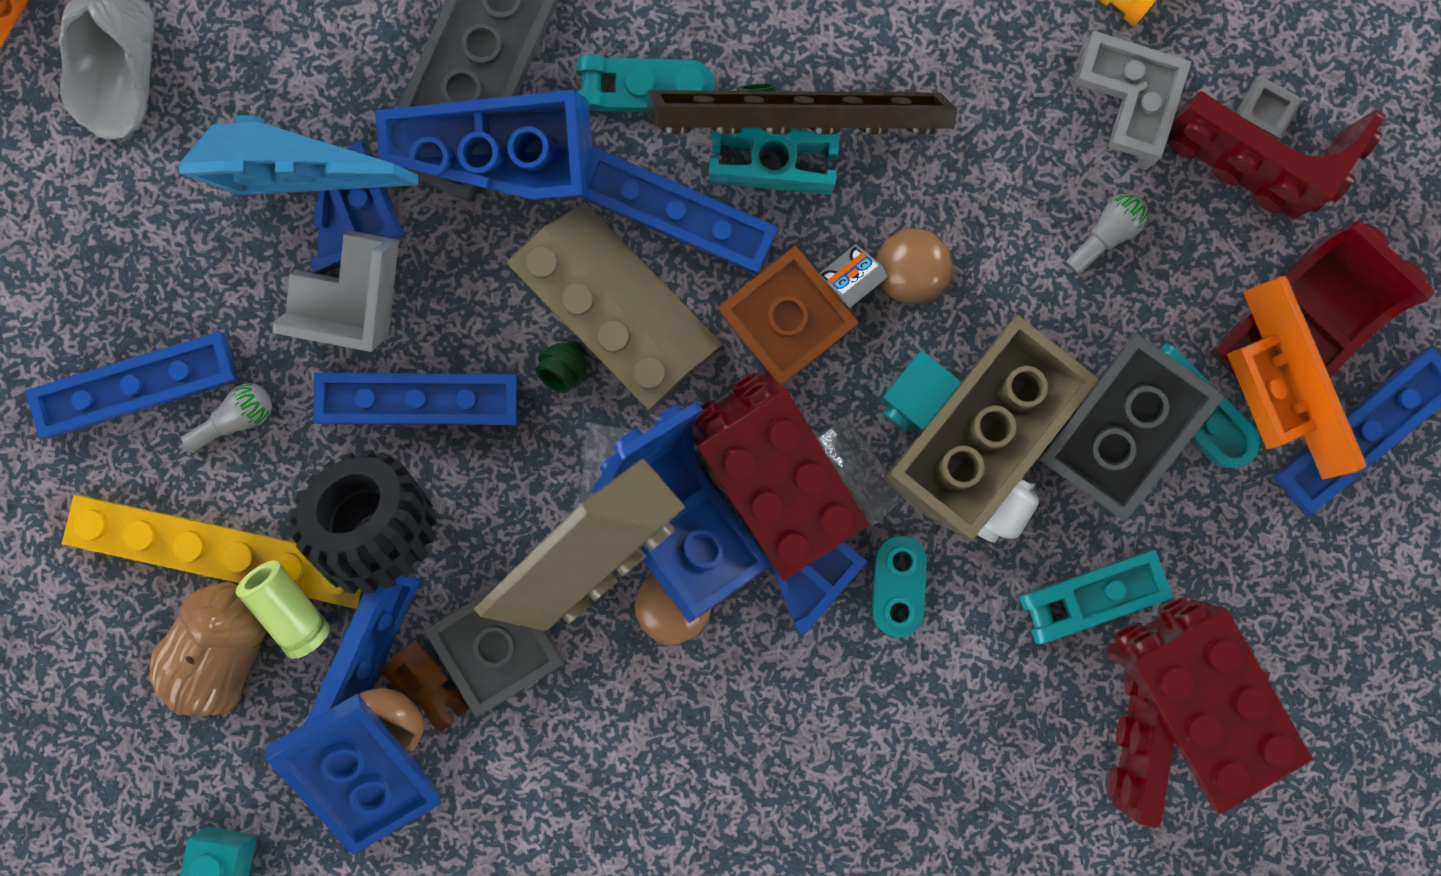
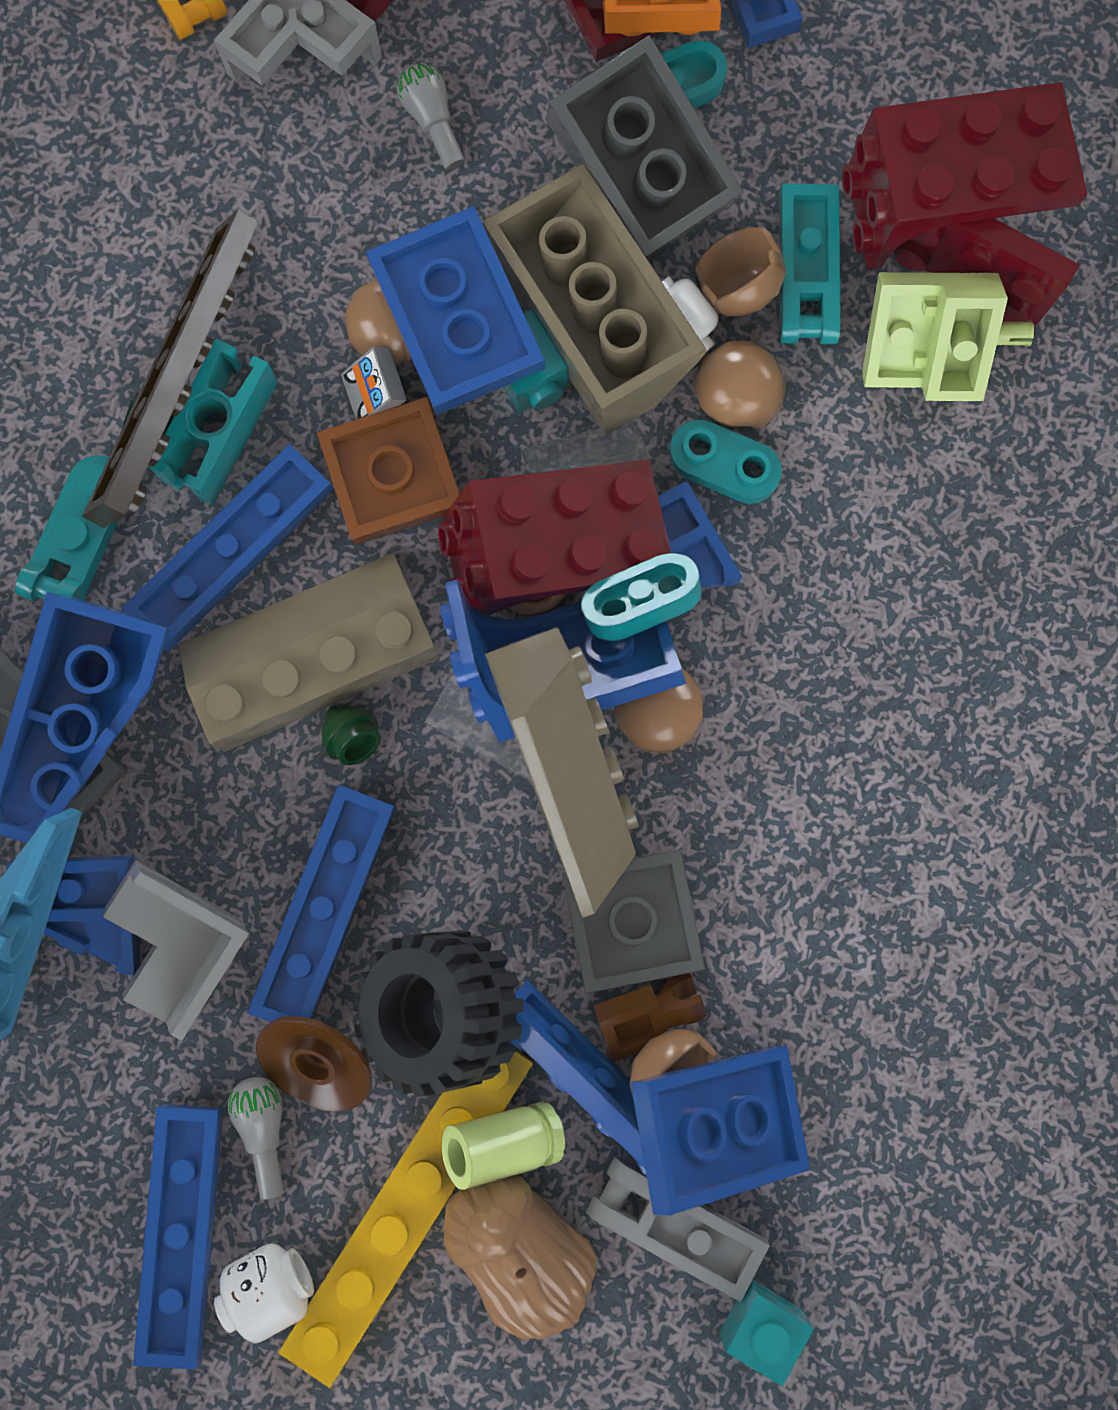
camera: 70 degrees left, 5 degrees down
(111, 468) = (263, 1293): none -> white head
(264, 797) = (692, 1240): none -> light grey plate
(294, 439) = (314, 1063): none -> reddish brown dish
(749, 560) = (639, 597): none -> teal plate
(932, 321) = (455, 310): none -> blue plate
(968, 576) = (740, 385): none -> medium nougat hair
(1063, 542) = (741, 272): none -> medium nougat hair
(1068, 728) = (939, 333): none -> yellowish green plate

